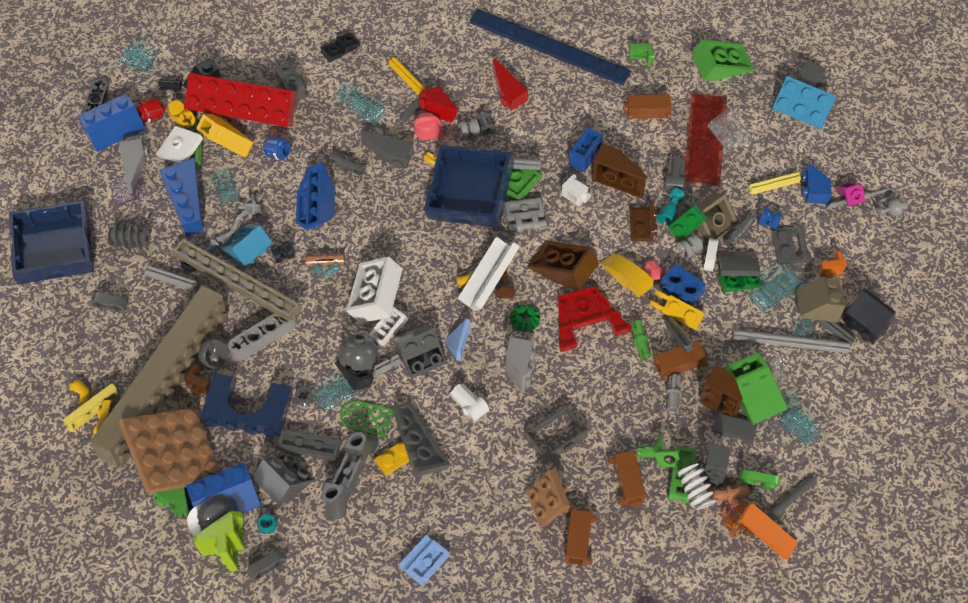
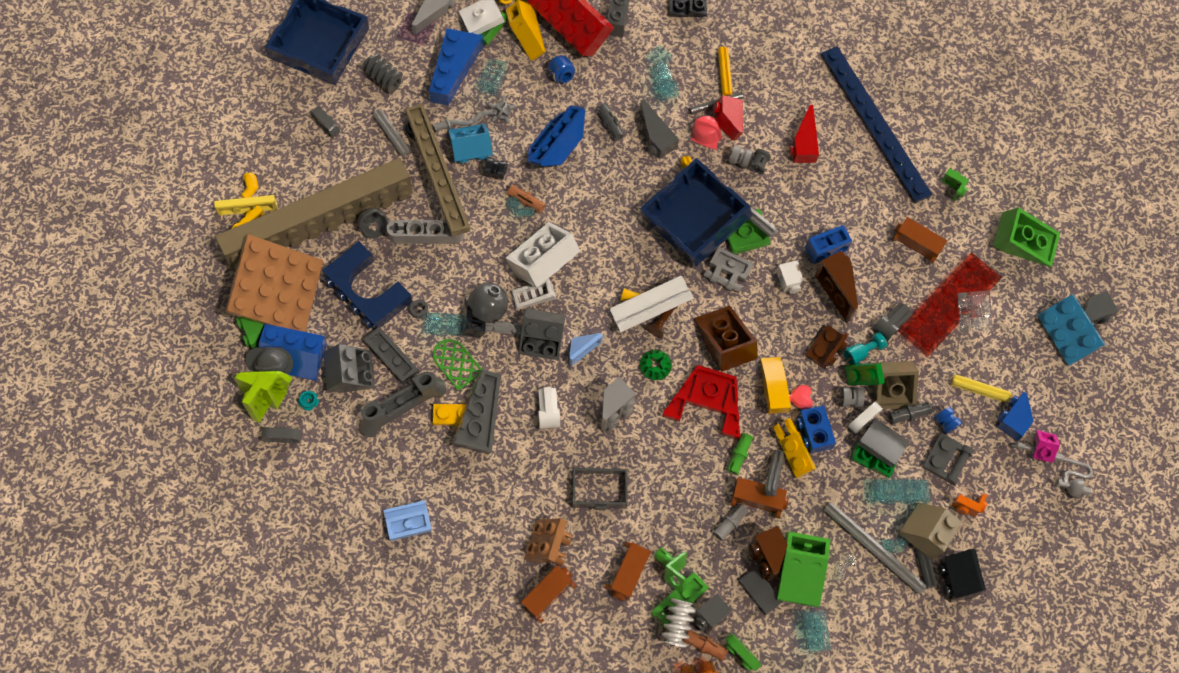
camera: 30 degrees right, 10 degrees up
(196, 384) = (339, 234): reddish brown bracket -> none

